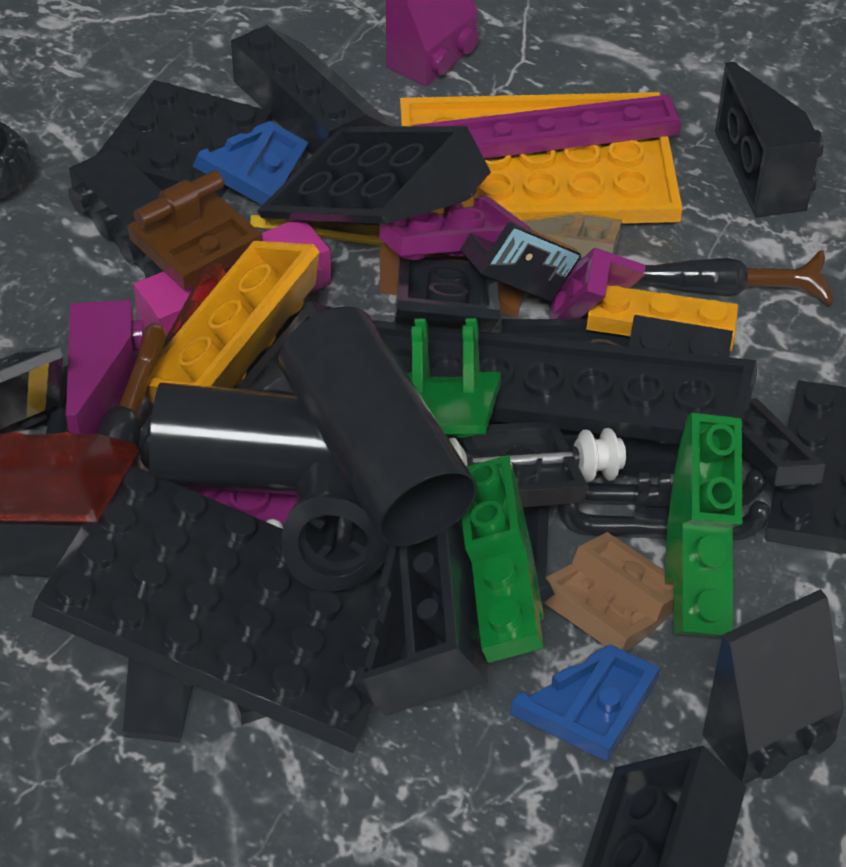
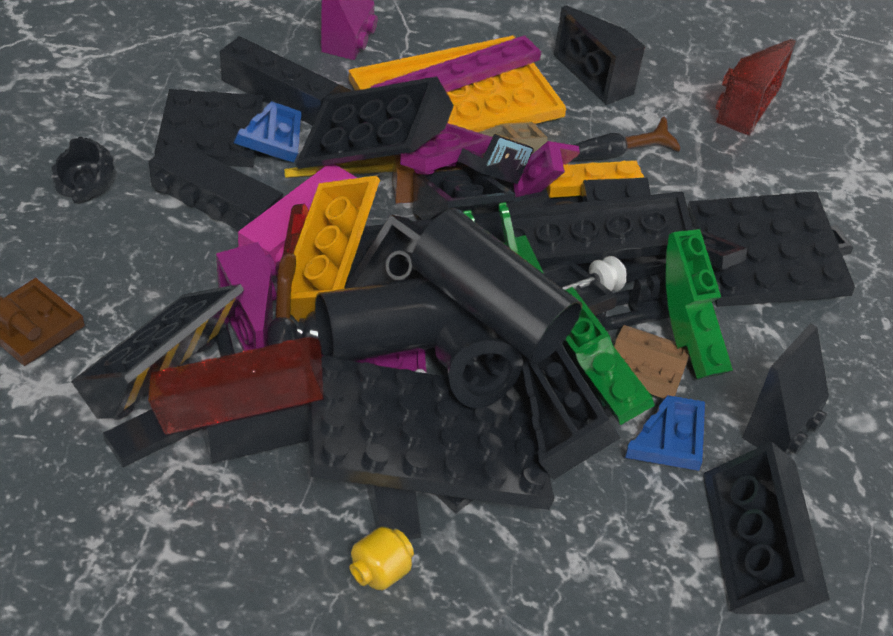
camera: 25 degrees left, 0 degrees up
(101, 752) = (381, 558): none -> yellow head
(191, 229) = (268, 186): reddish brown plate -> none

